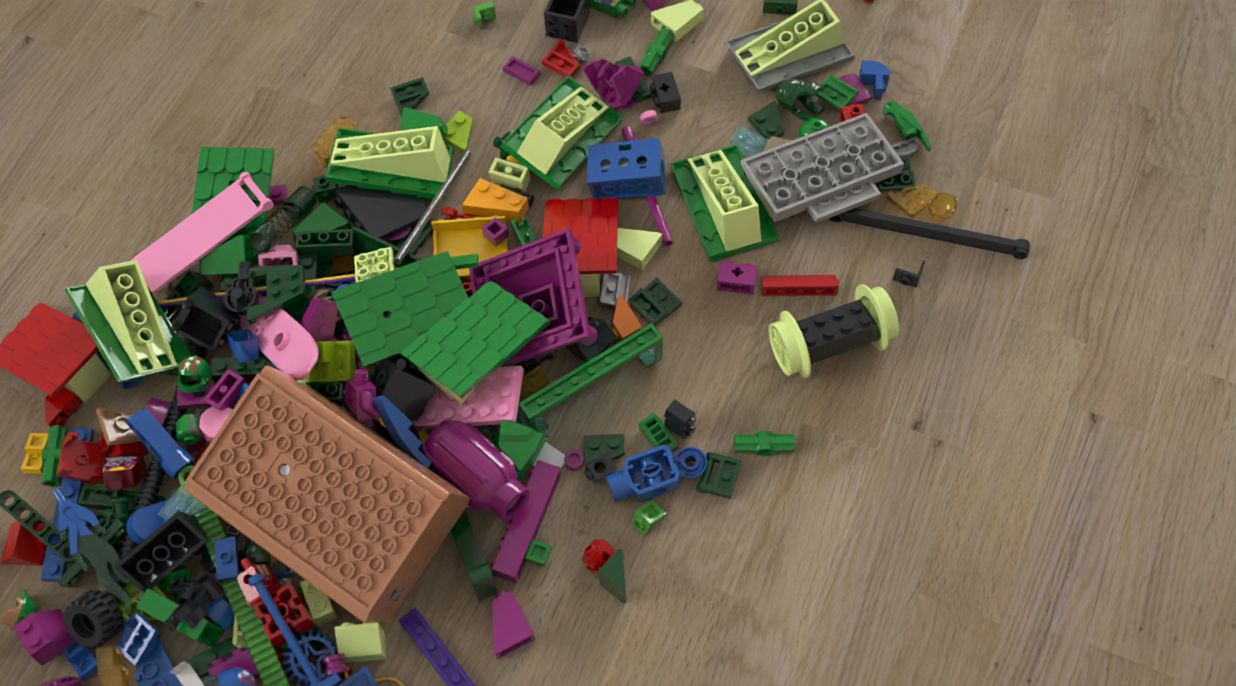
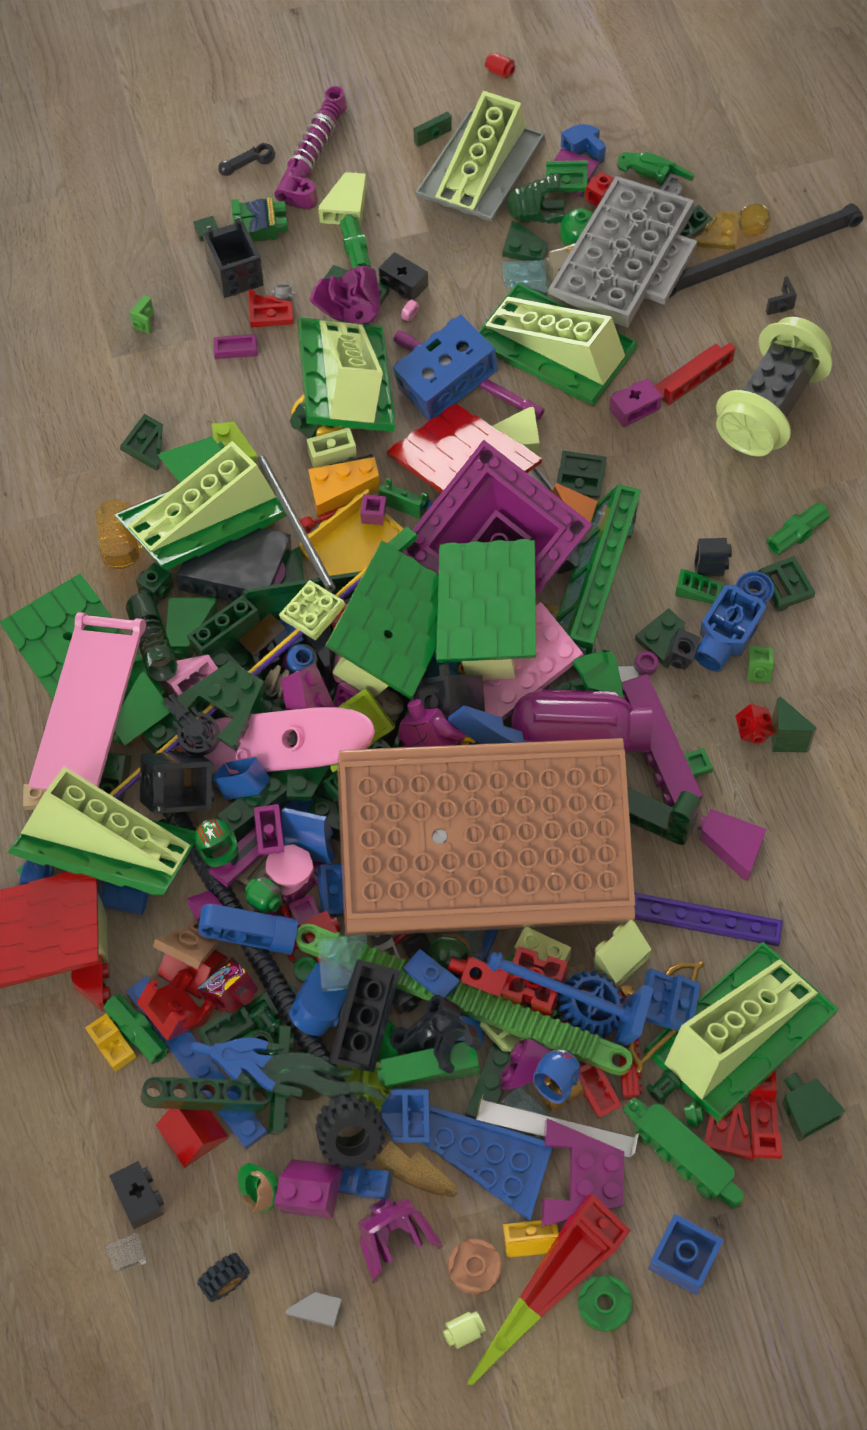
camera: 40 degrees left, 0 degrees up
(334, 664) = (623, 987): magenta wheel -> none

